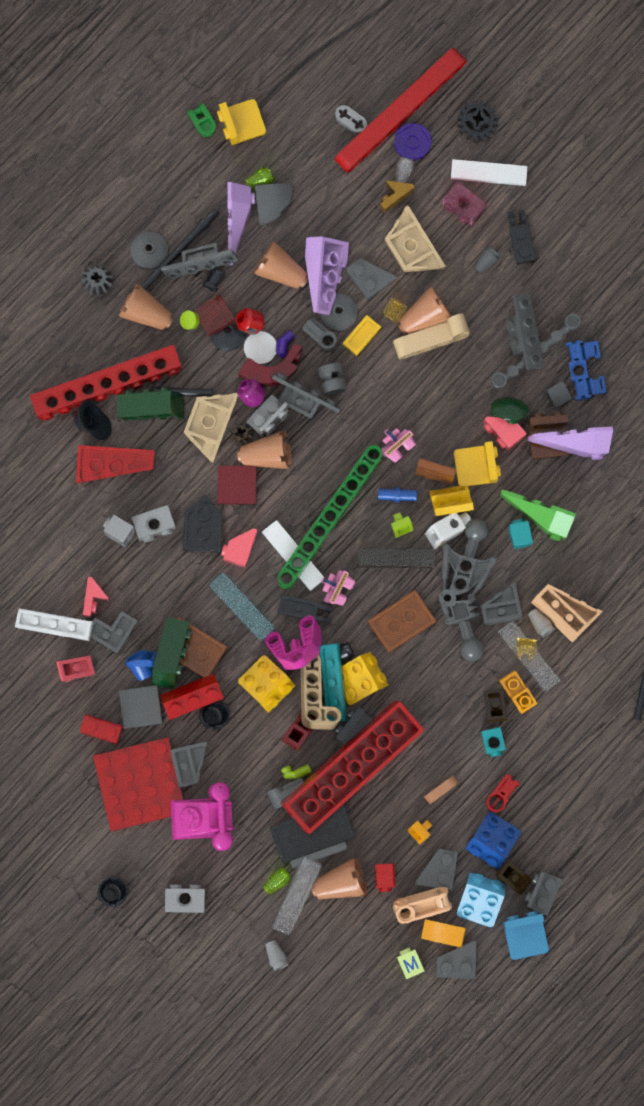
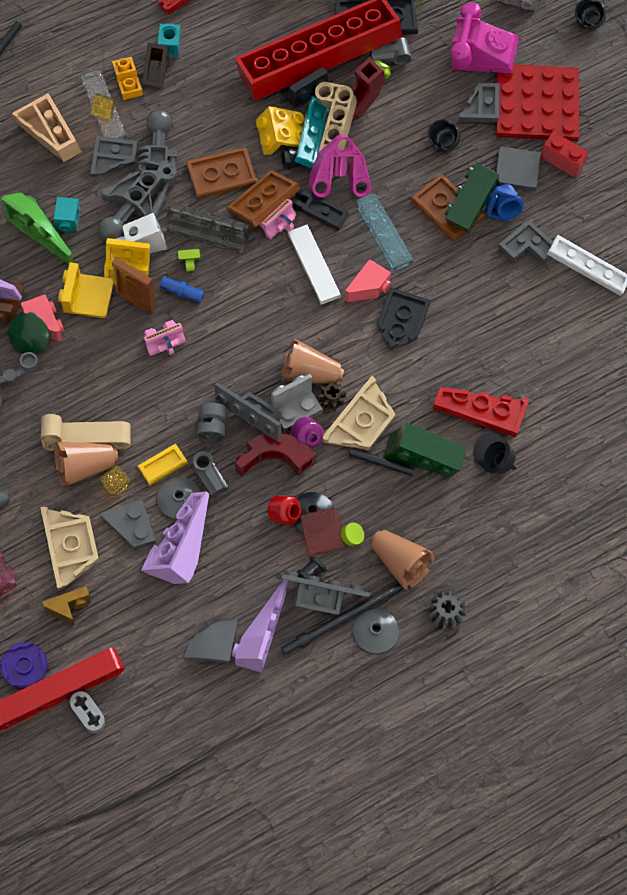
camera: 165 degrees left, 15 degrees down
(75, 668) = (580, 214): coral slope -> none
(93, 592) = (537, 282): coral slope -> none
(95, 380) = (458, 500): red brick -> none
(119, 530) = (495, 329): light grey brick -> none
(143, 520) = (446, 340): light grey brick -> none
(191, 696) = (461, 155): red brick -> none
(205, 126) = (266, 755): green plate -> none
(237, 485) = (353, 348): dark red tile -> none
(241, 121) = (219, 747): yellow bracket -> none
(260, 177) = (220, 672): clear neon green cone -> none
(260, 347) = (280, 482): white sticker -> none
(266, 683) = (383, 153): yellow bracket -> none
(280, 267) = (231, 559): nougat cone -> none
(281, 344) = (255, 480): dark purple arm -> none
(332, 507) = (258, 293): green beam -> none
(355, 602) = (263, 198): none -> dark orange tile
(404, 169) = (47, 631): clear cone -> none
(441, 789) = (236, 14): nougat beam -> none
(541, 623) = (79, 129): light grey cone -> none

